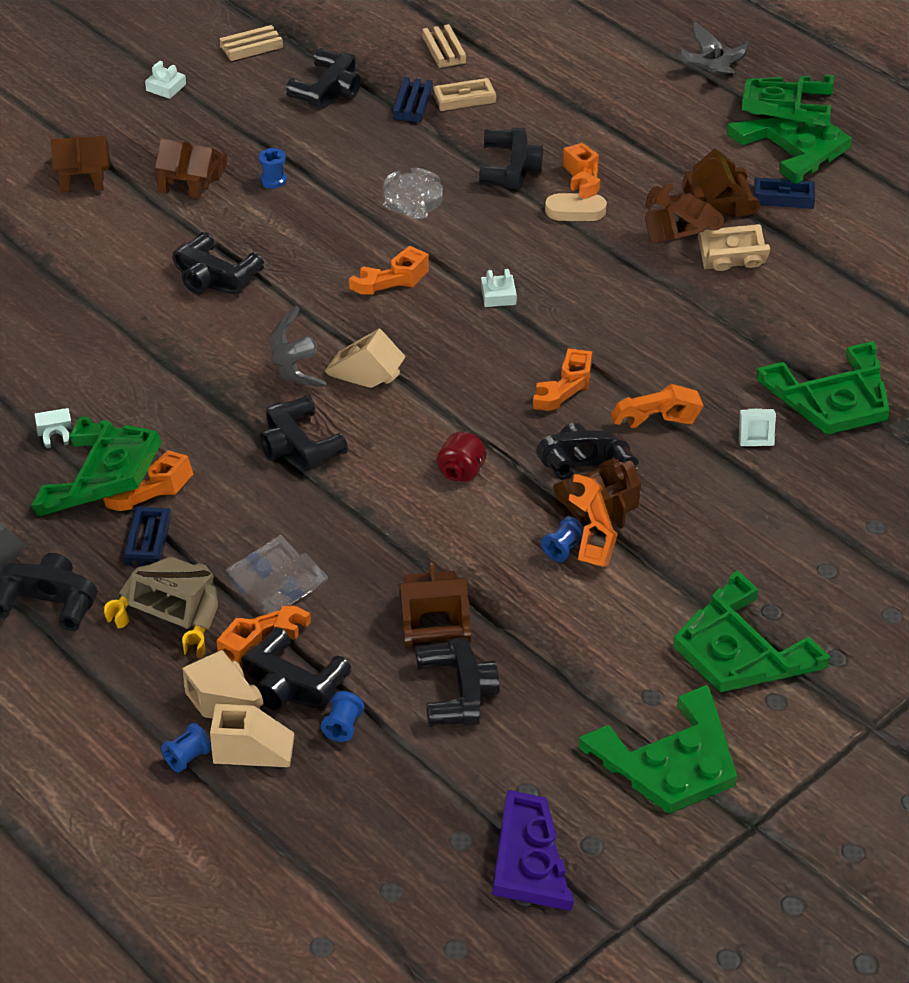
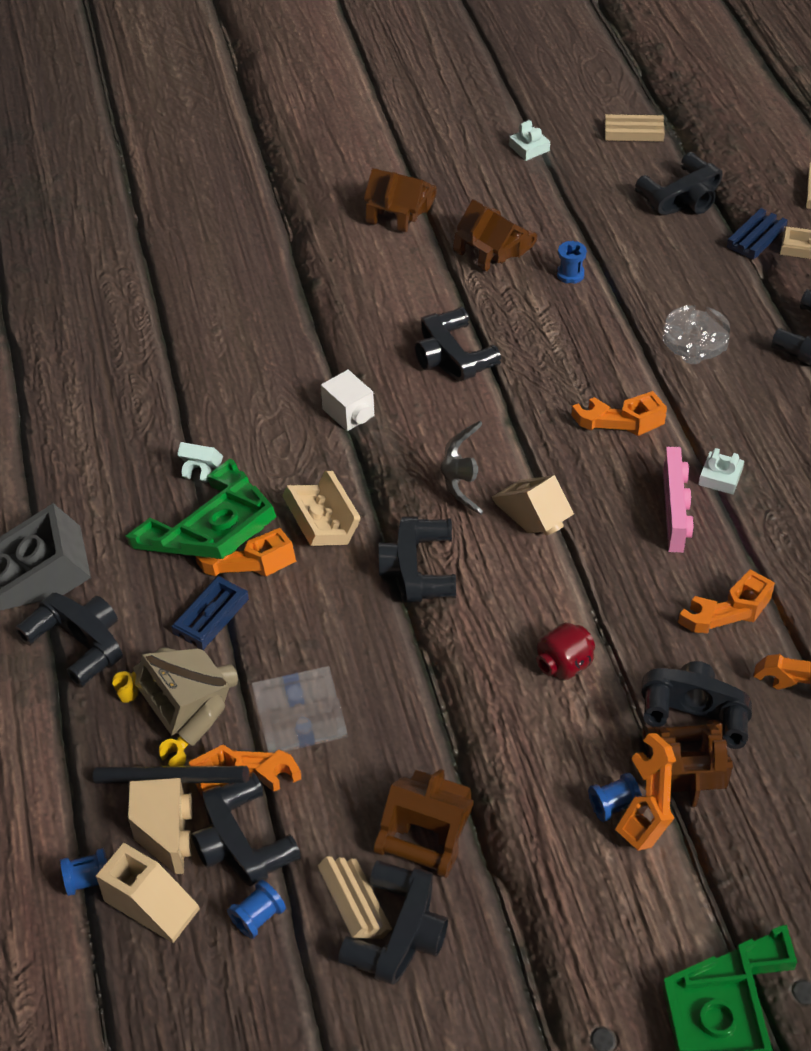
camera: 30 degrees right, 5 degrees up
(153, 337) = (347, 400): none -> white brick
(194, 425) = (323, 511): none -> tan bracket
(227, 645) = (187, 774): none -> black bar
(412, 679) = (354, 898): none -> tan tile
(477, 320) = (677, 499): none -> bright pink plate

